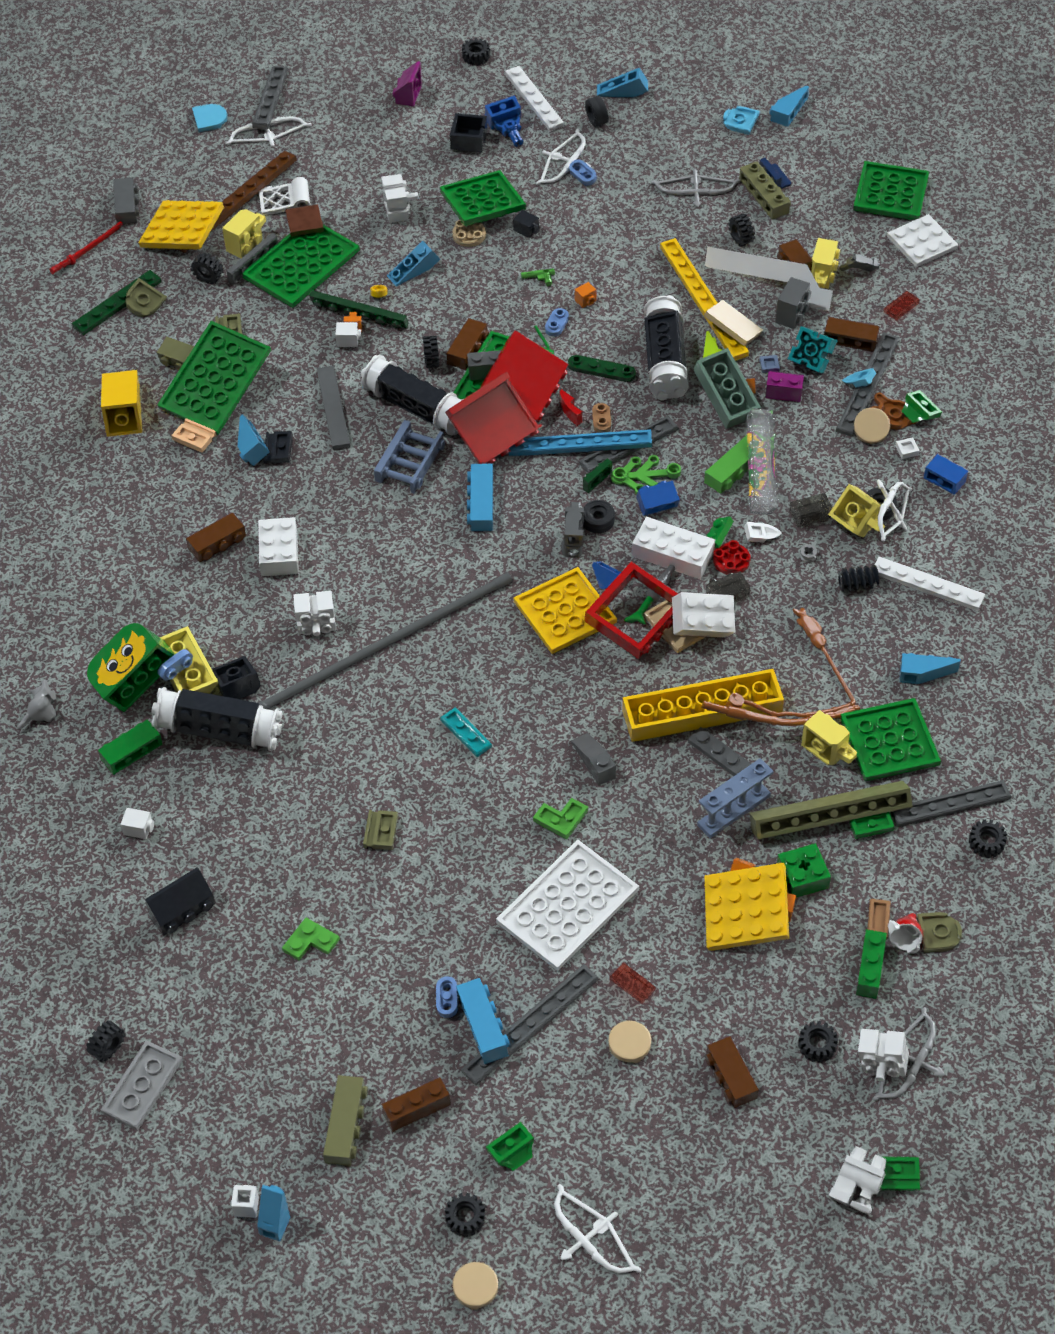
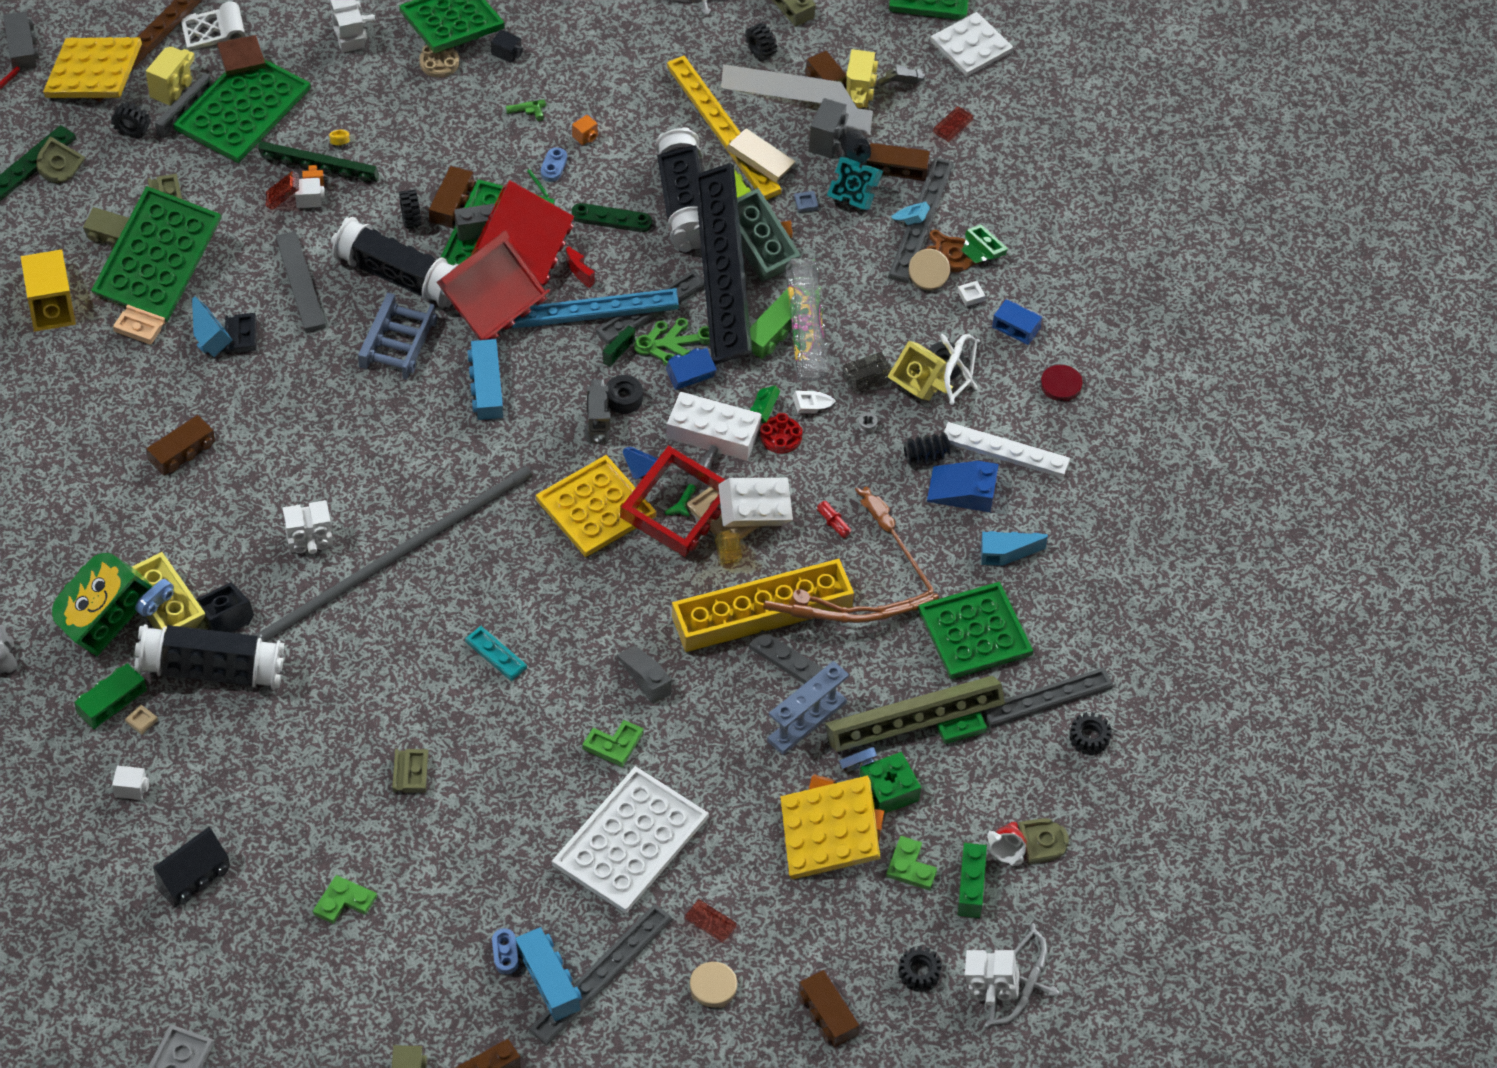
camera: 10 degrees left, 0 degrees up
(105, 1041) = (125, 1028): black tyre -> none
(154, 769) = (141, 719): none -> tan tile
(278, 546) = (255, 452): white brick -> none
(325, 331) = (282, 190): none -> clear red tile
(415, 263) = (380, 101): dark azure slope -> none
(601, 418) = (615, 276): medium nougat plate -> none
(676, 653) = (728, 547): none -> clear yellow brick
(692, 411) = (723, 264): none -> black plate
(730, 585) = (782, 466): clear smoke brick -> none
(771, 634) = (833, 519): none -> red axle
(779, 846) = (863, 757): none -> medium blue plate
(784, 386) = (825, 227): magenta slope -> none
(811, 946) = (907, 869): none -> bright green plate
(815, 318) = (856, 146): none -> black piece
(827, 739) = (906, 635): light yellow hinge -> none
(879, 915) = (976, 826): medium nougat tile -> none
(889, 612) = (964, 485): none -> blue slope
(981, 528) = (1061, 382): none -> dark red tile

